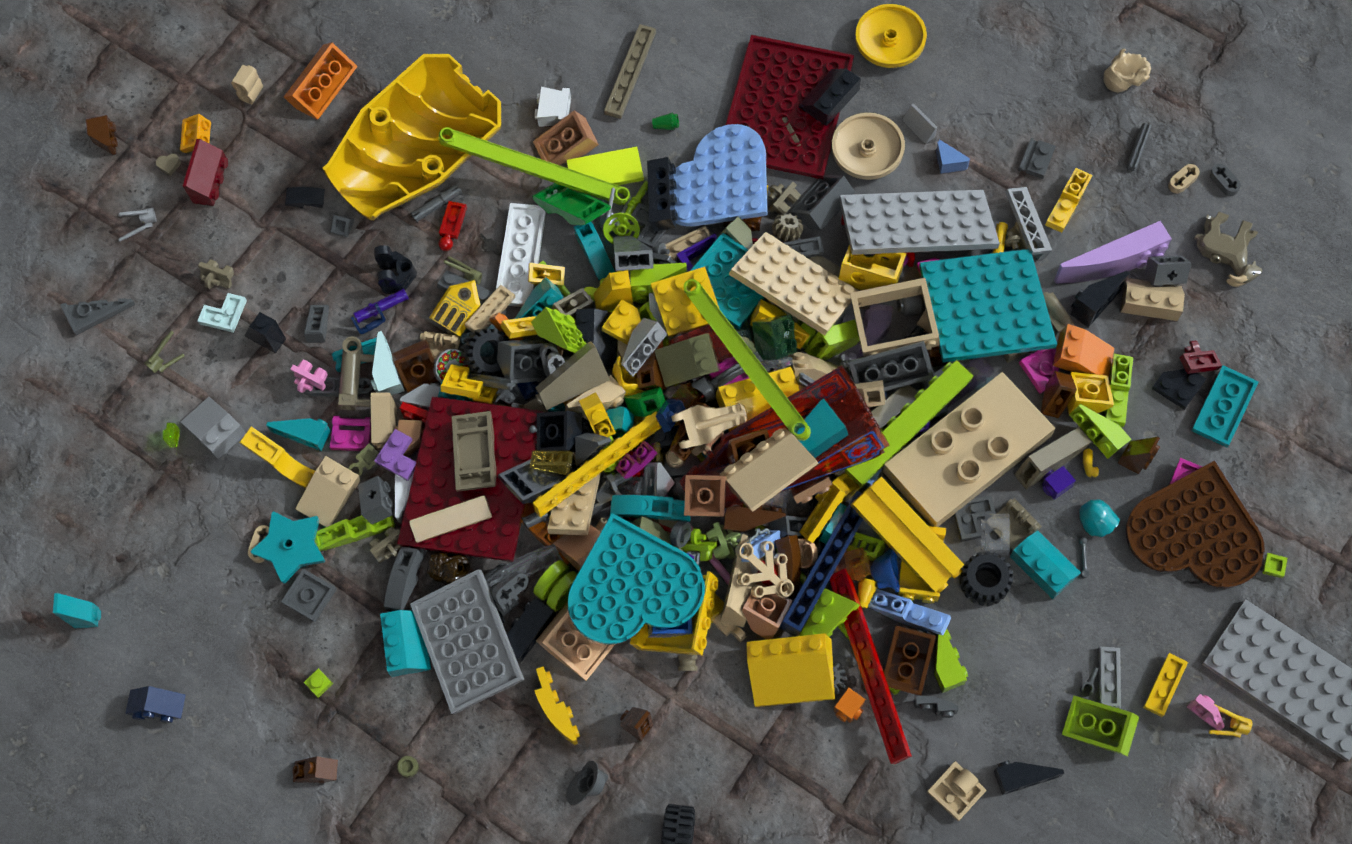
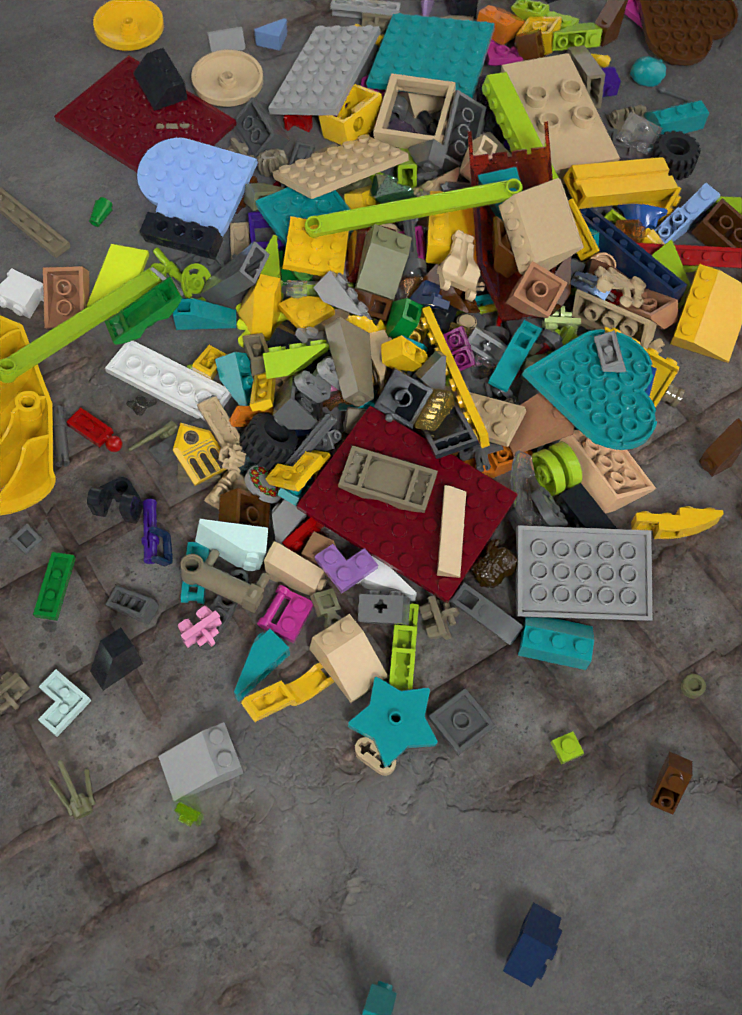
camera: 75 degrees left, 5 degrees down
(310, 263) = (54, 586): none -> green plate
(458, 331) = (232, 456): none -> tan gear
(600, 340) = (309, 334): none -> light grey plate
(639, 305) = (296, 288): none -> clear plate
(671, 581) = (609, 352): none -> light grey slope
(842, 350) = (429, 155): none -> dark grey slope

